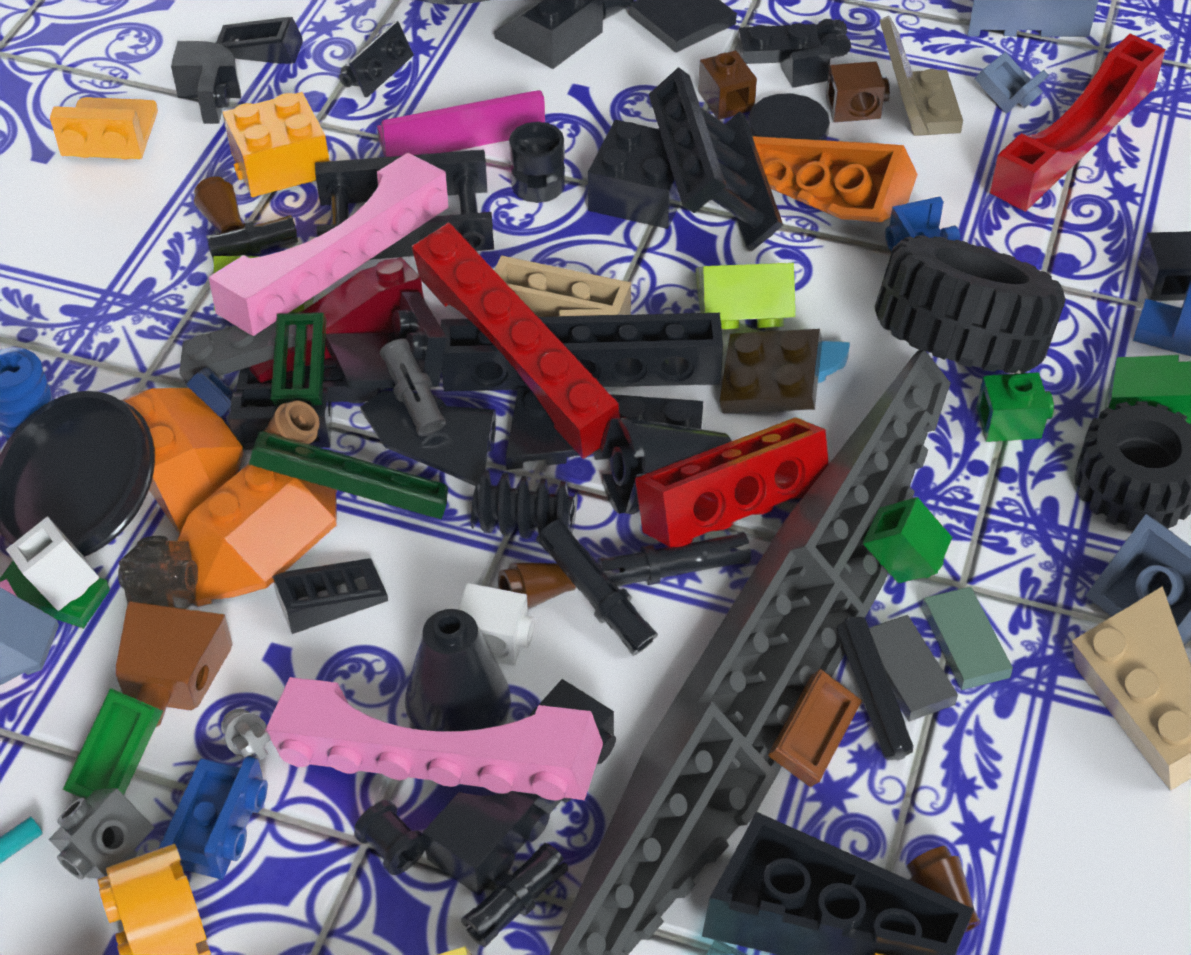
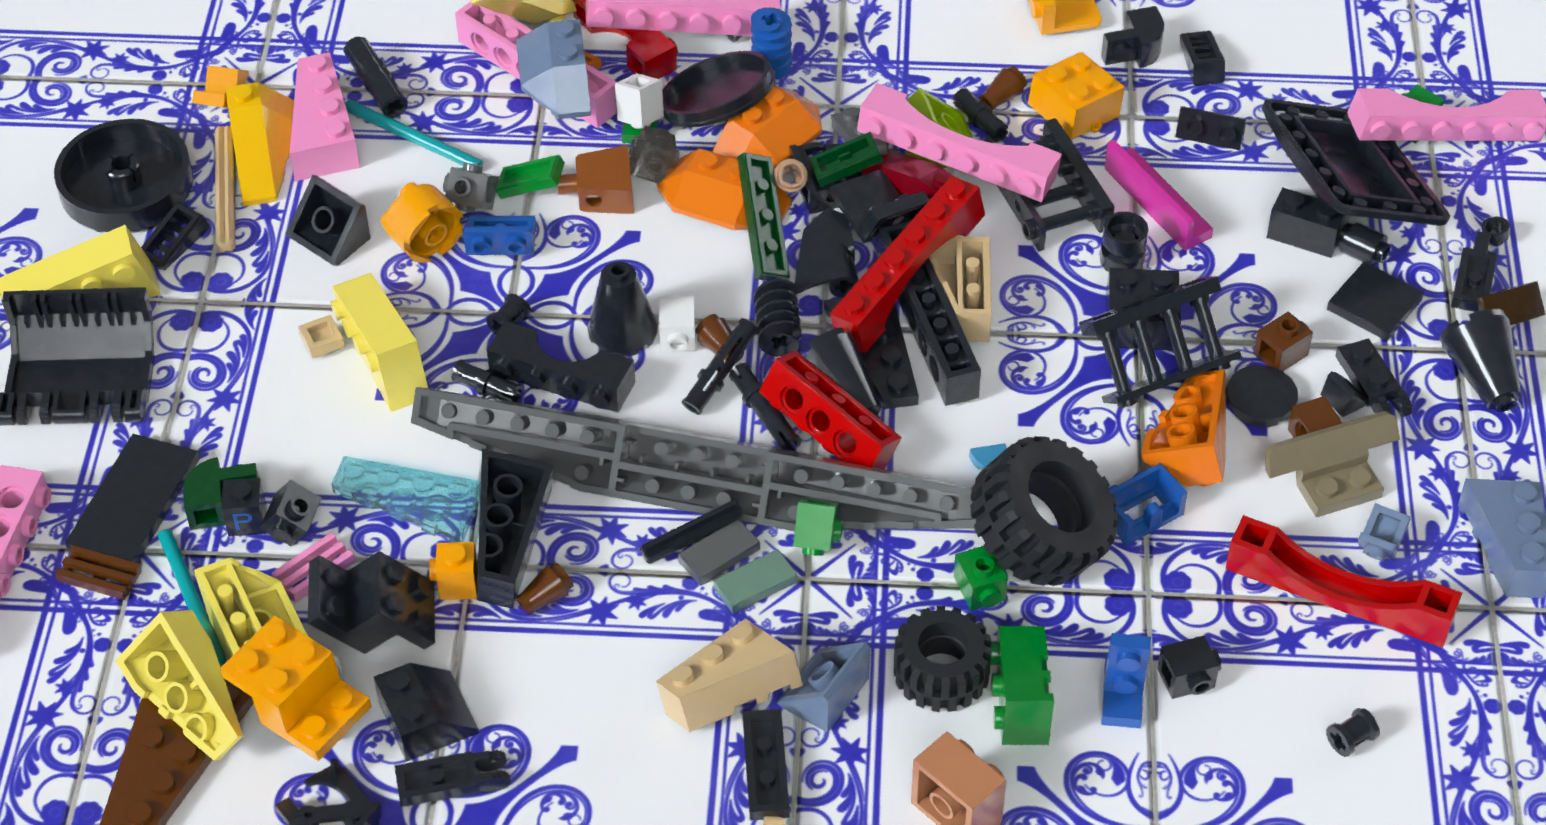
camera: 75 degrees right, 0 degrees up
(211, 391) = (818, 130): dark blue tile -> none
(245, 733) = (551, 227): light grey axle -> none
(319, 610) = (668, 225): black slope -> none
(400, 362) = (840, 221): flat silver pin -> none
(537, 755) = (558, 347): bright pink arch -> none
(748, 292) = (1039, 396): lime slope -> none
(771, 371) = (963, 428): dark brown plate -> none
(815, 728) = (649, 505): dark orange tile -> none

